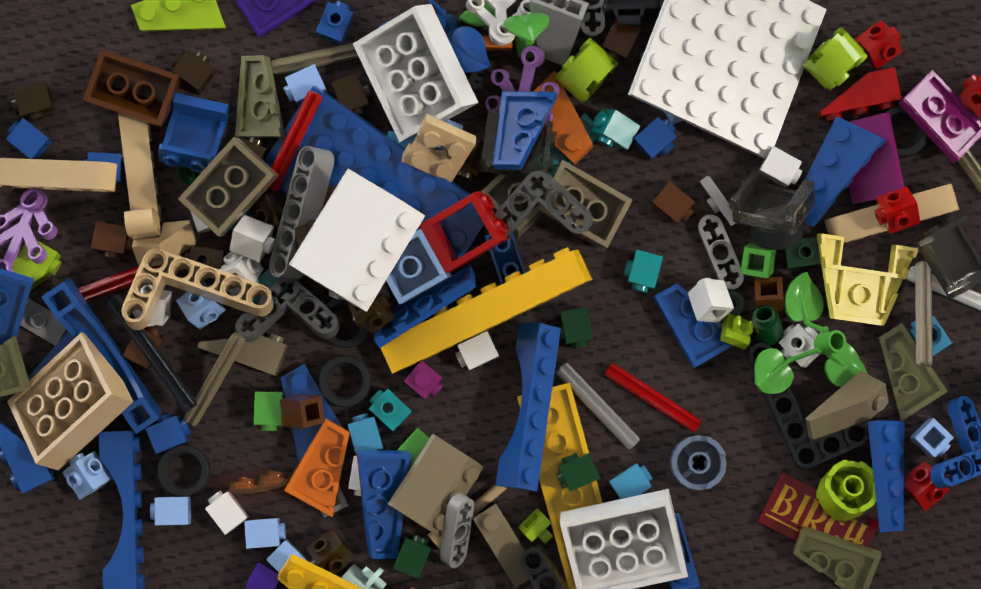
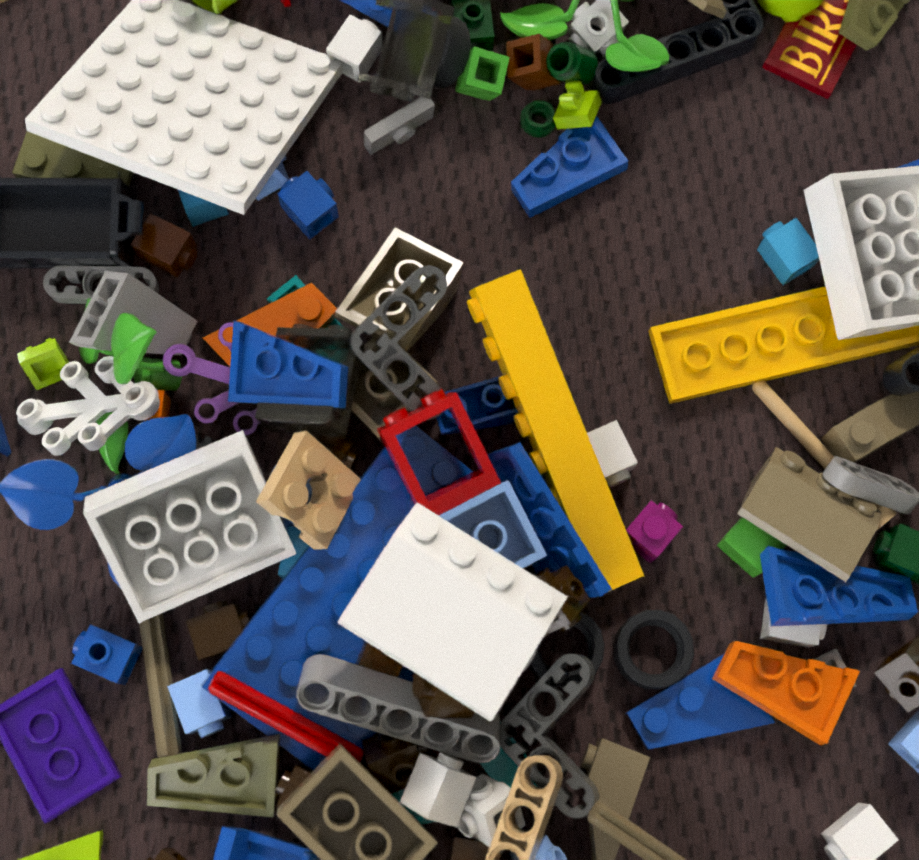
camera: 90 degrees left, 10 degrees down
(264, 532) = (887, 778): light blue brick -> none
(267, 482) = (810, 768): clear orange slope -> none
(268, 410) = (699, 768): bright green brick -> none
(302, 410) = (707, 712): reddish brown brick -> none
(365, 433) = (733, 619): dark azure brick -> none
(389, 409) = (694, 583): teal brick -> none
(536, 526) = (854, 379): lime tile -> none
(537, 356) = (771, 390): blue arch -> none
(575, 327) = (572, 317): dark green brick -> none
(577, 471) = (781, 313): dark green brick -> none
(586, 70) = (205, 286): lime brick -> none
(598, 406) = (680, 293): light grey axle -> none
(614, 129) = (291, 254): brick -> none
(643, 270) = (493, 224): teal brick -> none
(652, 397) = (667, 222): red axle -> none
(673, 204) = (400, 183): reddish brown brick -> none
(710, 300) = (536, 136): white brick -> none
(713, 462) = (759, 160): sand blue brick -> none
(726, 242) = (496, 129): light grey beam -> none

